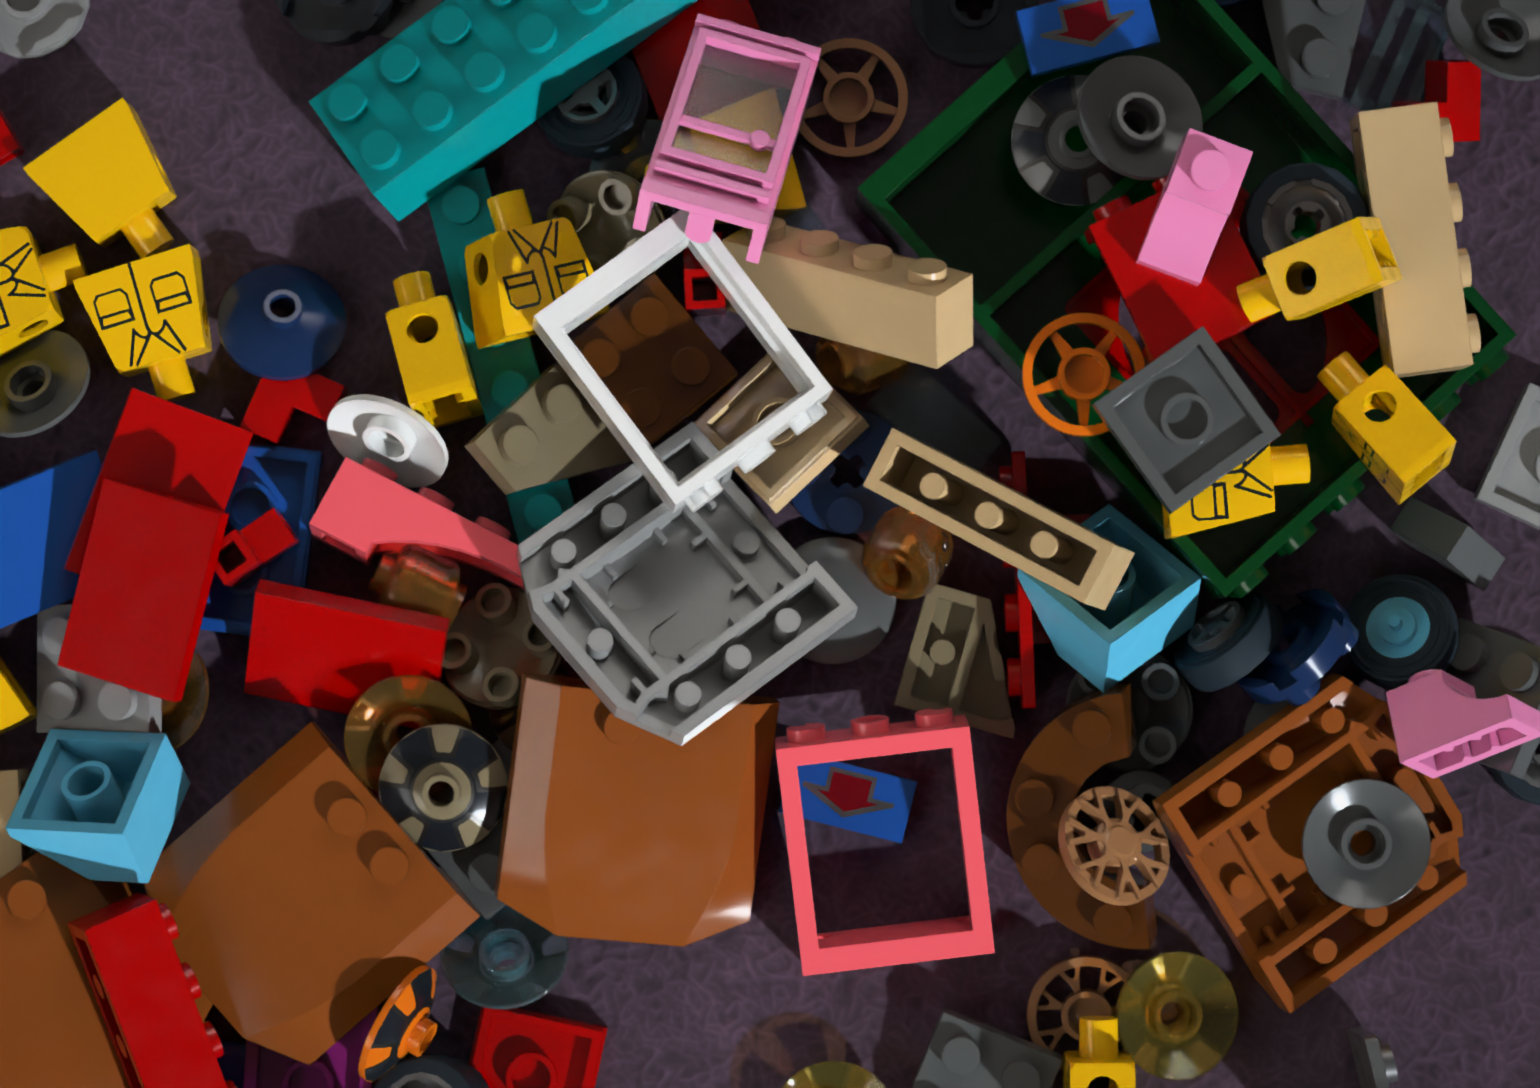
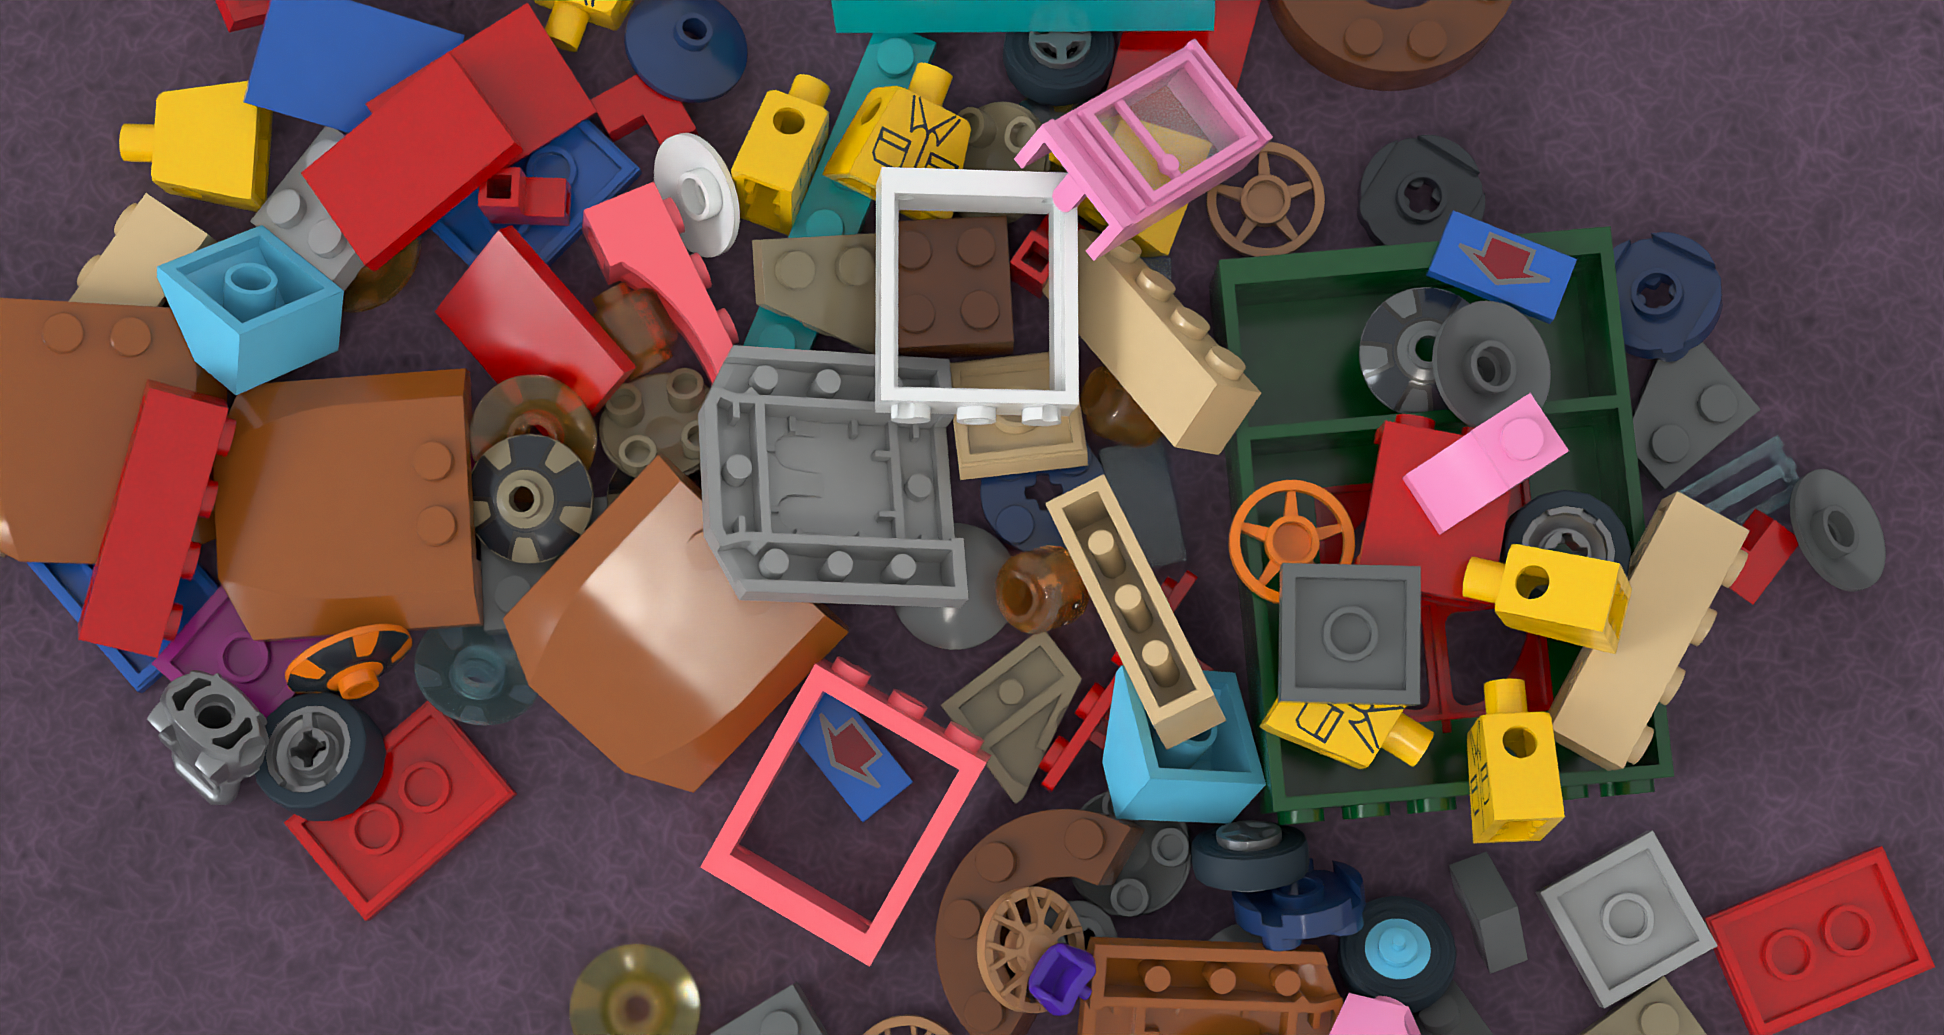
camera: 40 degrees right, 5 degrees down
(1155, 850) = (1062, 978): none -> dark purple piece

